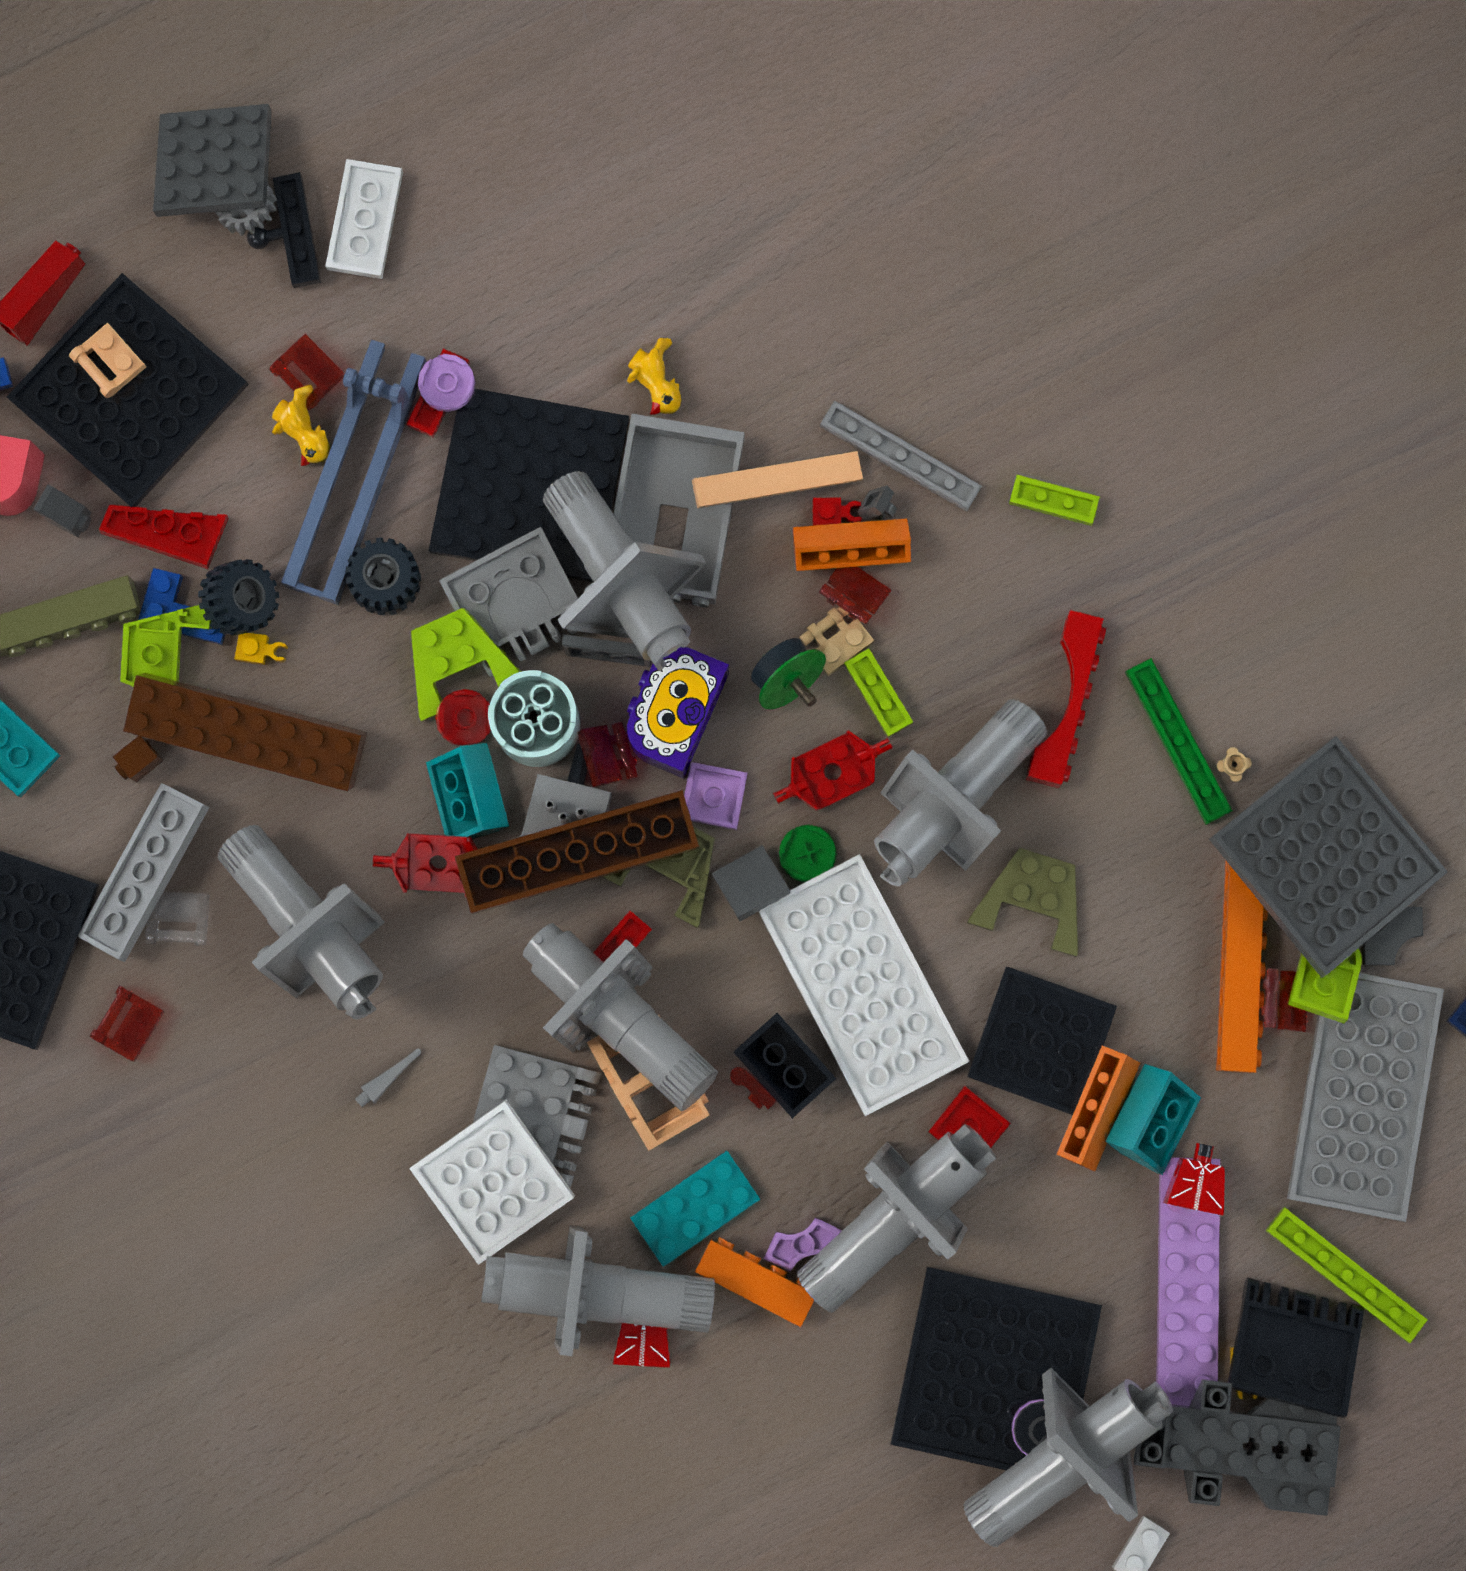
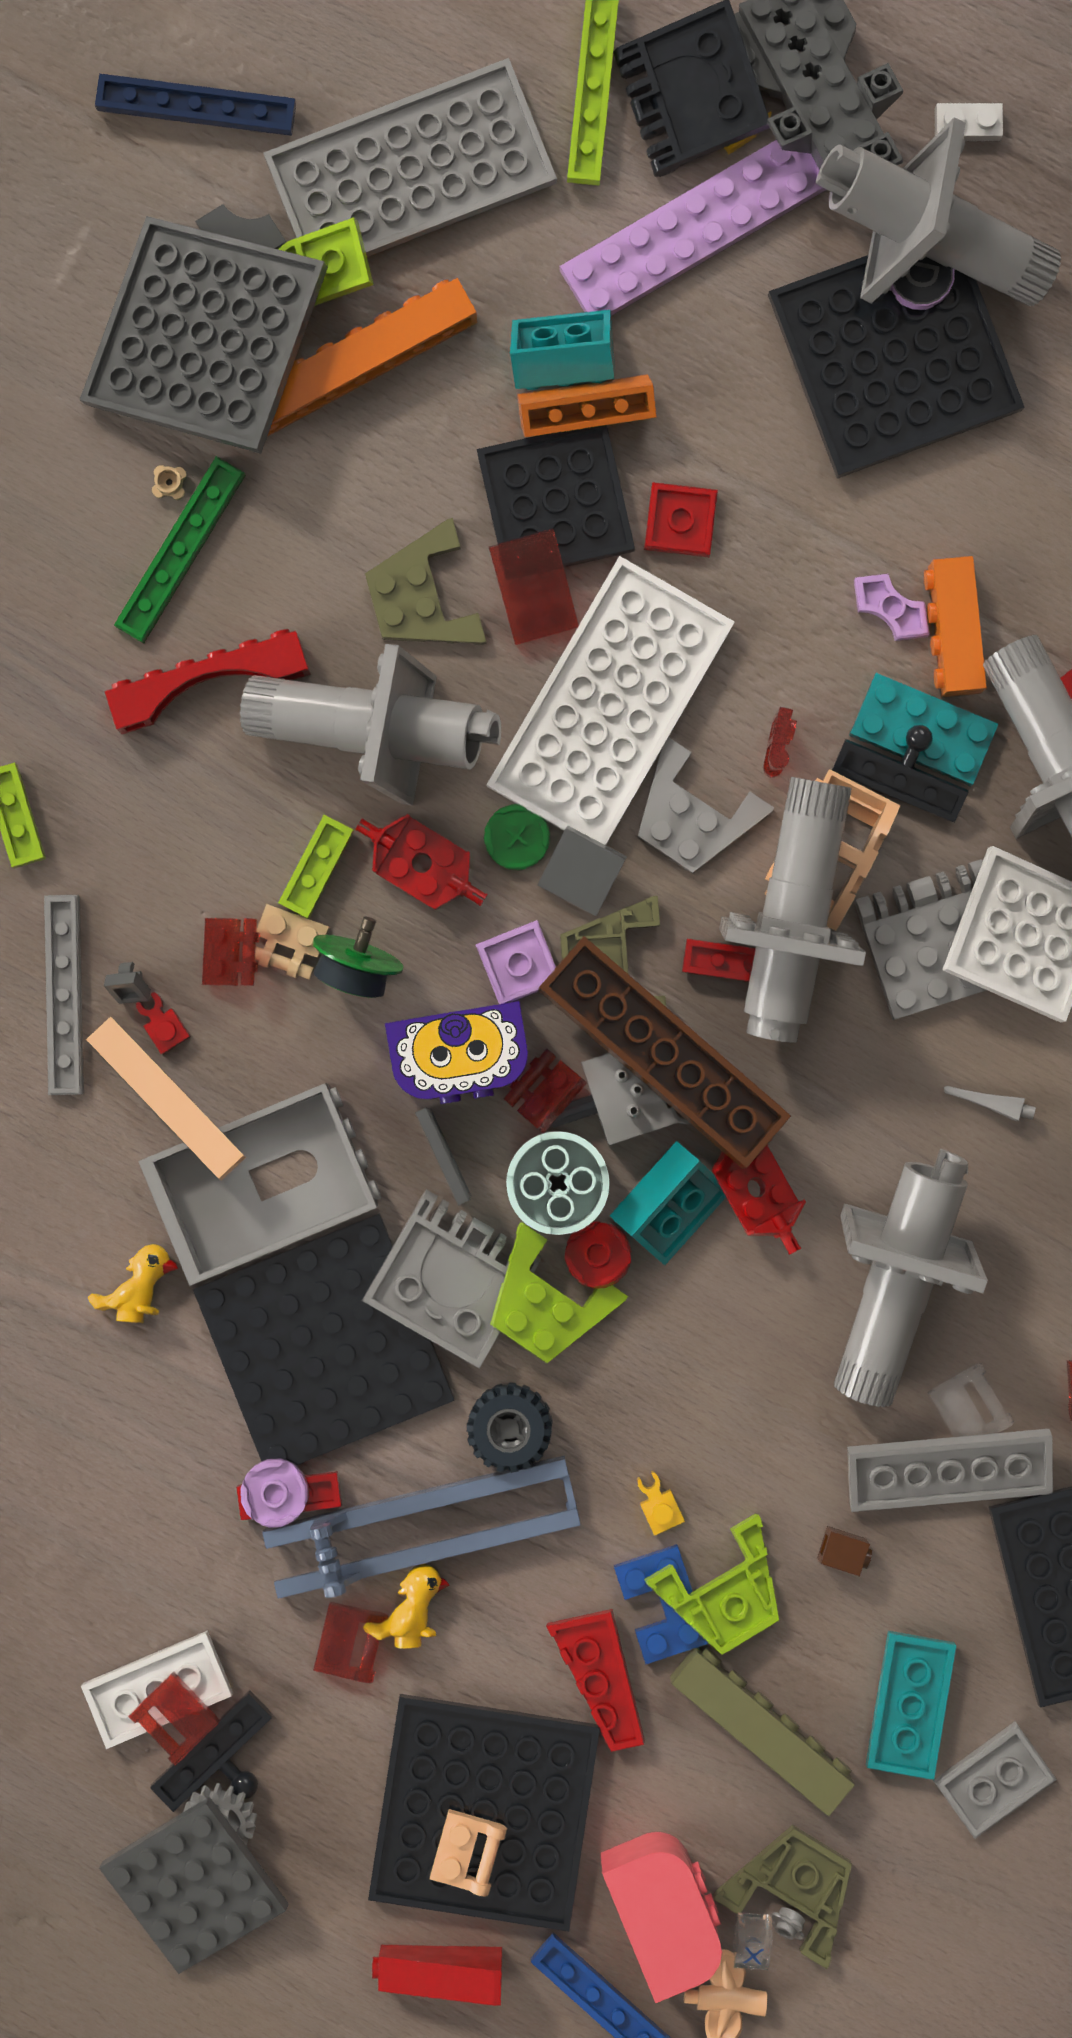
camera: 125 degrees left, 5 degrees up
(63, 511) = (648, 1792): dark grey slope -> none
(238, 597) = (623, 1556): black wheel -> none
(245, 731) = (751, 1462): reddish brown brick -> none
(337, 226) = (182, 1710): none -> clear red plate
(629, 577) = (364, 1173): light grey piece -> none
(668, 1166) = (902, 778): none -> black plate
(738, 982) = (686, 826): none -> light grey wing
(784, 1065) = (736, 726): black slope -> none
(852, 544) = (184, 983): orange brick -> none
(910, 1206) = (798, 521): light grey piece -> none
(985, 981) = (533, 586): none -> clear red plate
(1198, 1183) = (599, 267): red torso -> none
(1289, 1017) = (384, 294): clear red plate -> none

